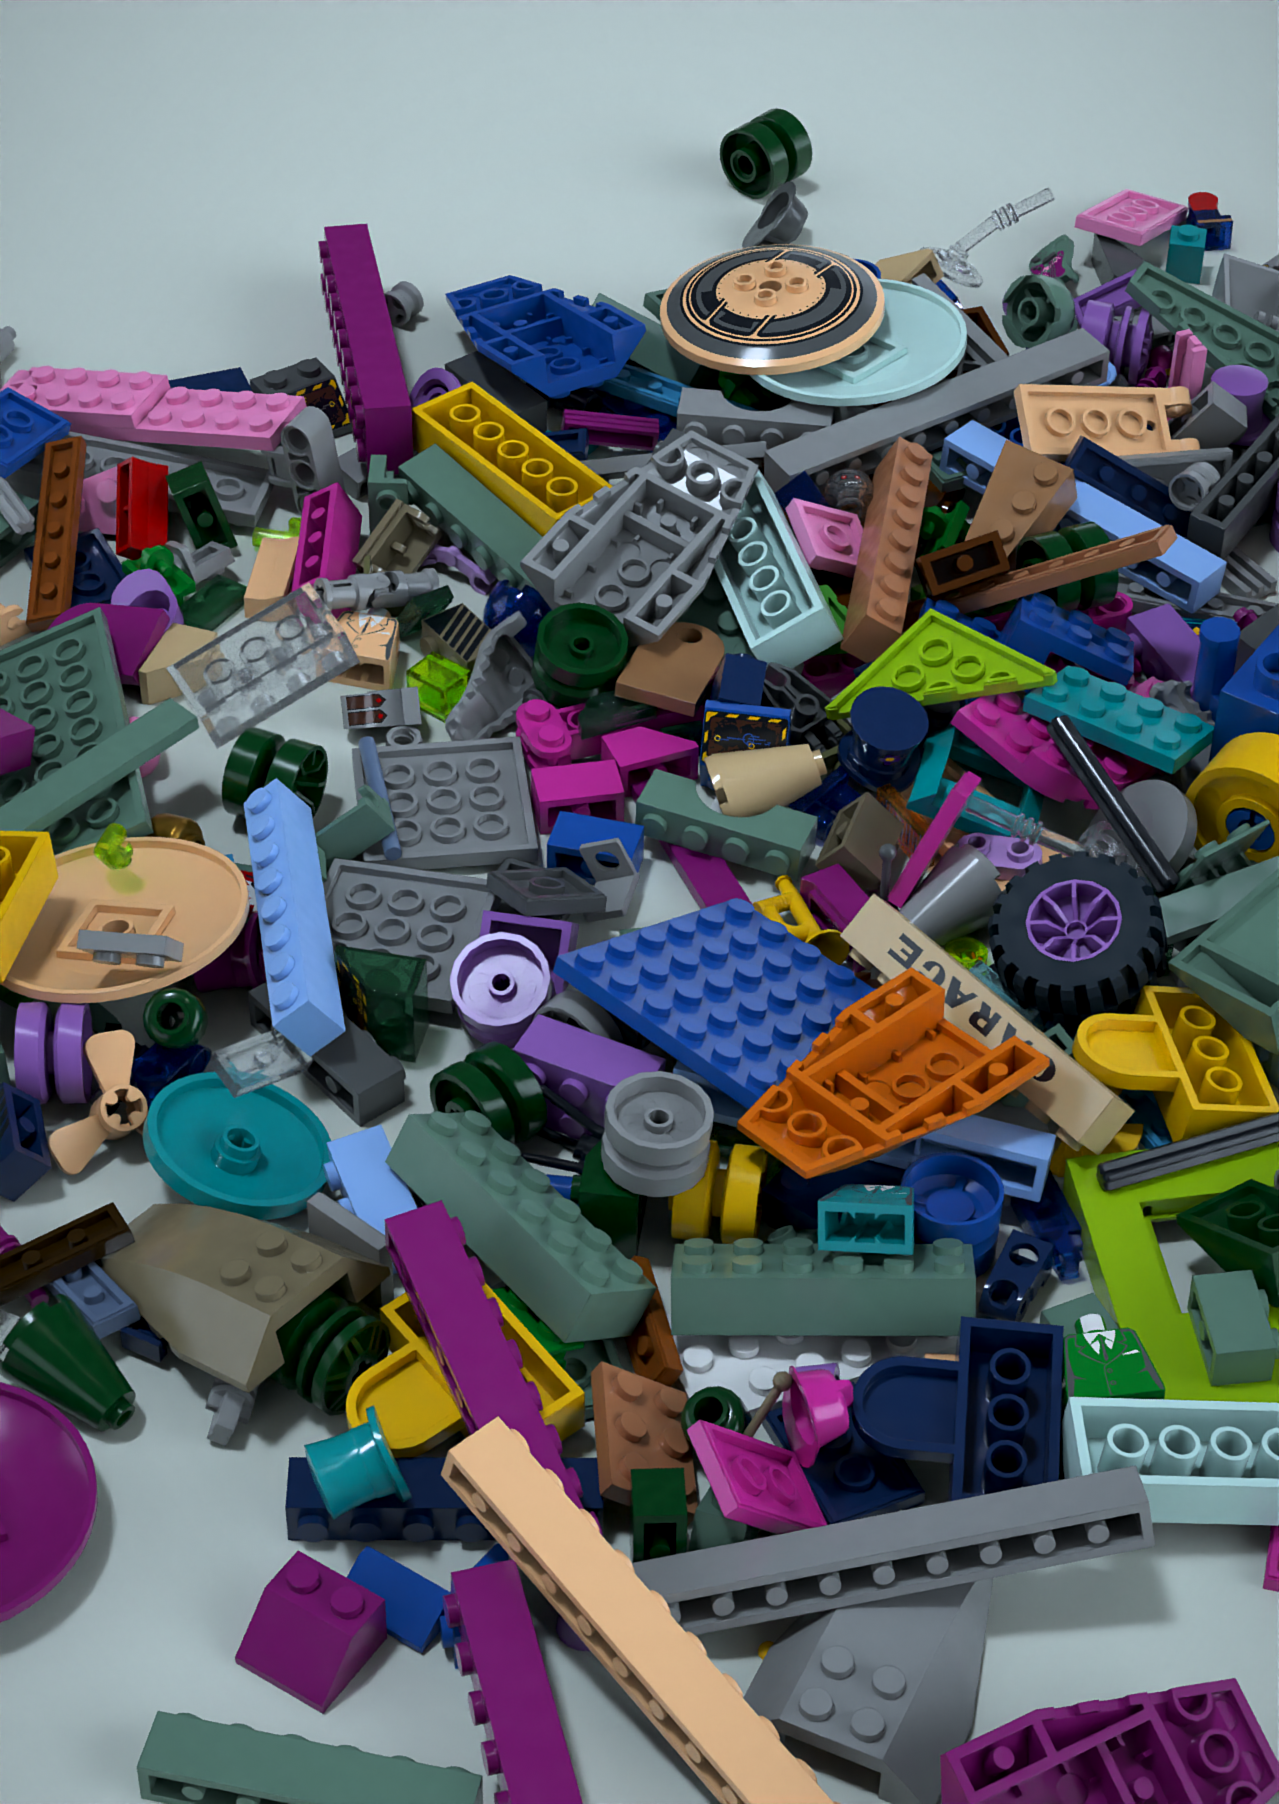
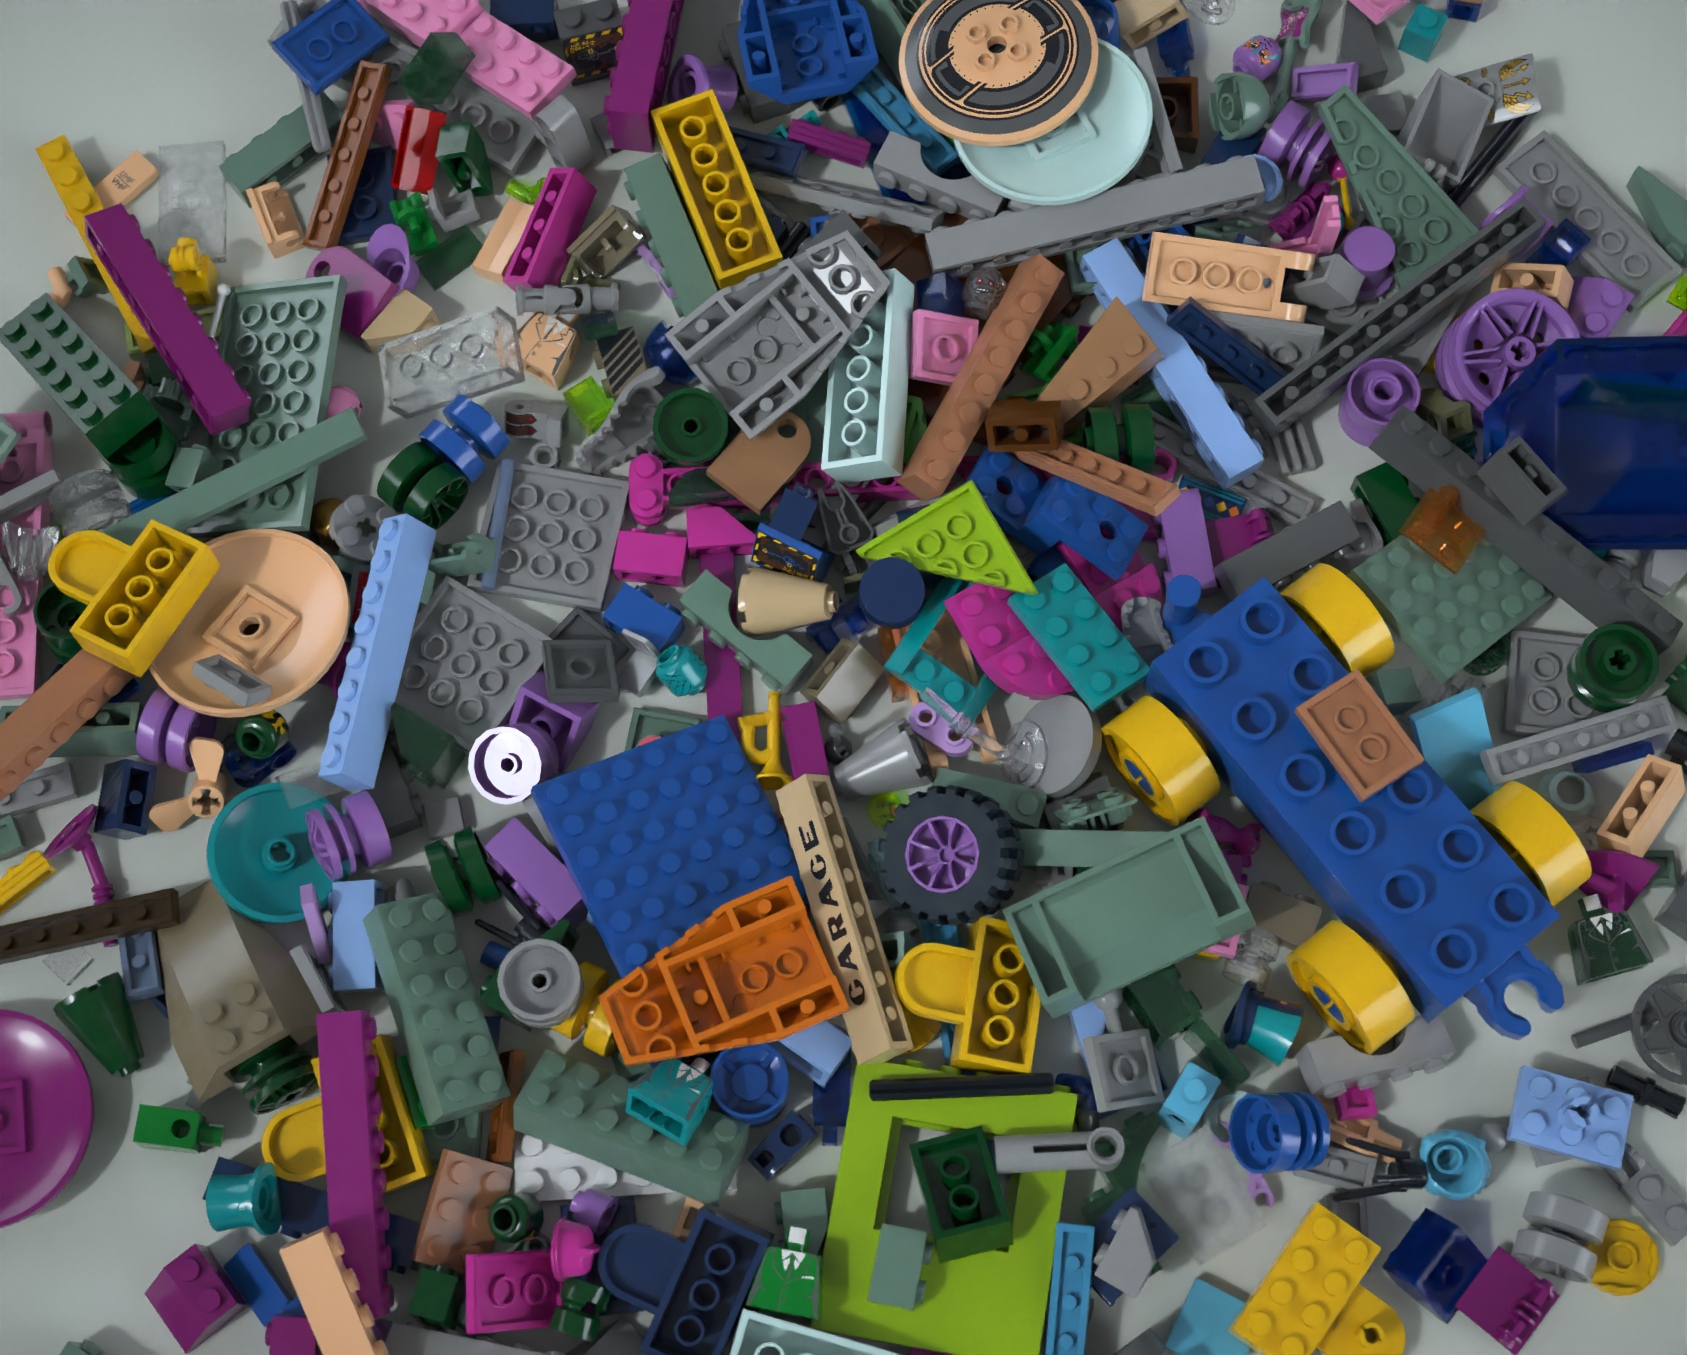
camera: 25 degrees right, 30 degrees up
(110, 849) = (264, 549): clear neon green arm -> none
(143, 422) = (436, 68): none -> clear green brick
(211, 1452) = (160, 1126): none -> green torso
(214, 824) = (345, 531): none -> light grey plate
(312, 1173) = (315, 922): none -> lavender tile
(315, 712) = (471, 432): none -> blue wheel
(328, 1091) = (355, 833): none -> medium lavender wheel
(383, 489) = (609, 184): sand green bracket -> none
(419, 1078) = (444, 818): none -> light grey tile
(664, 877) = (681, 670): none -> teal head
(782, 1382) = (548, 1228): dark tan hinge -> none
(849, 1481) = (580, 1309): none -> dark green wheel
(933, 839) = (885, 715): dark pink tile -> none
(1113, 804) = (1034, 726): black axle -> none
(1193, 485) = (1271, 366): light grey wheel -> none

